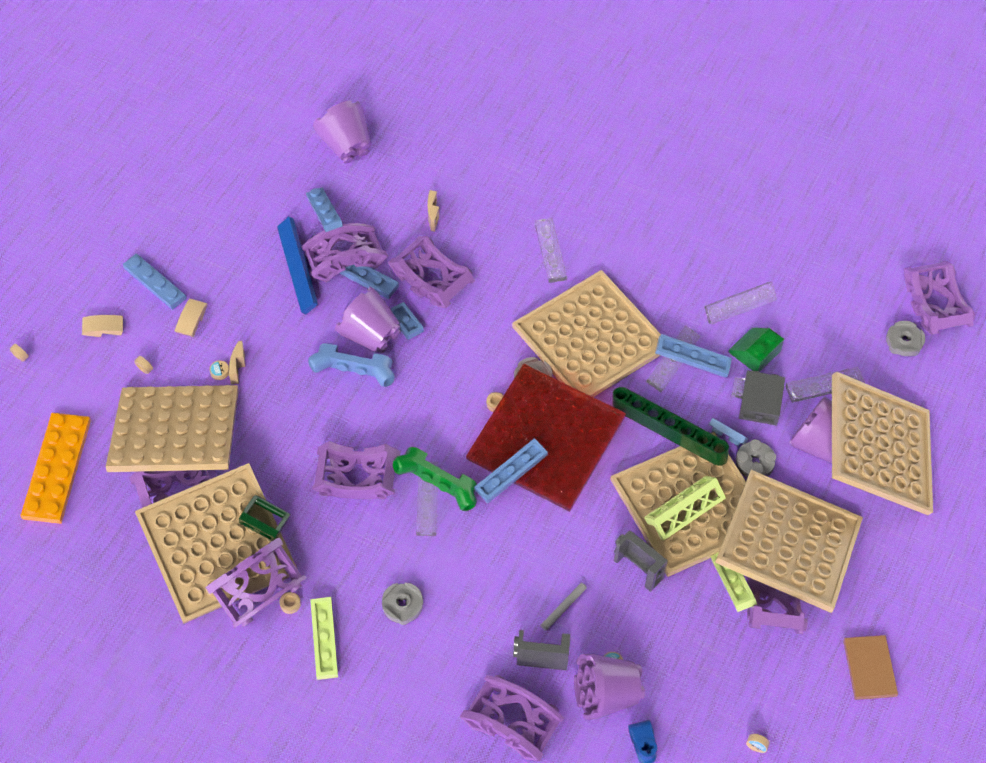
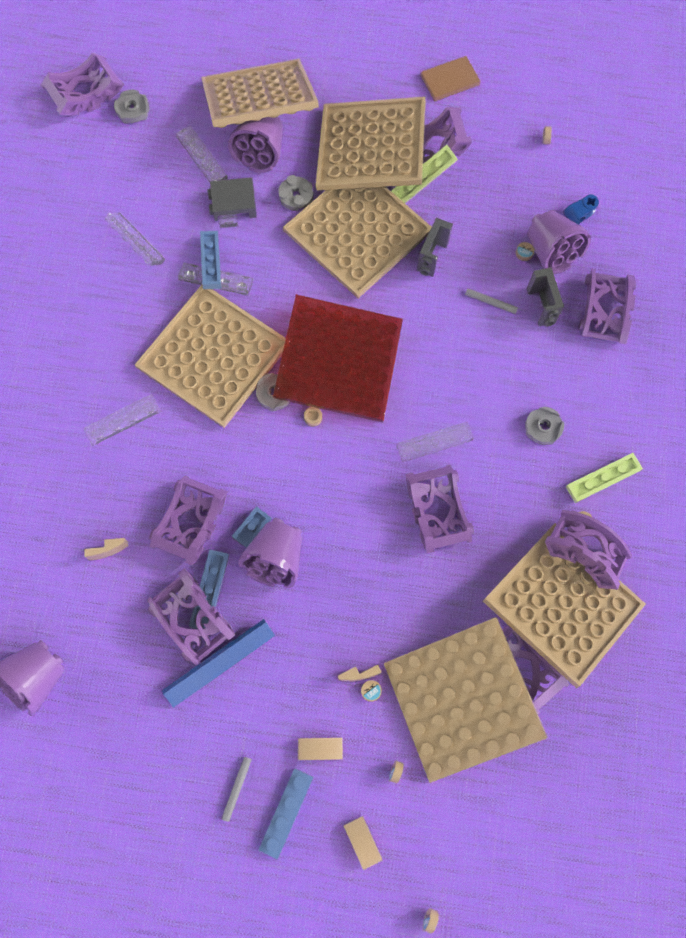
camera: 110 degrees left, 15 degrees up
(56, 468) = (541, 808): light orange plate -> none
(195, 256) = (236, 789): none -> light grey bar
(260, 527) = (541, 566): dark green tile -> none
(324, 209) = (142, 659): medium blue plate -> none
(329, 356) = (320, 585): medium blue plate -> none
(460, 488) = (416, 452): green plate -> none
(511, 471) = (388, 372): medium blue plate -> none
(671, 426) = (291, 251): dark green beam -> none
(681, 501) = (368, 228): yellowish green fence -> none
(735, 437) = (280, 211): medium blue plate -> none
(757, 348) = (180, 215): green slope -> none

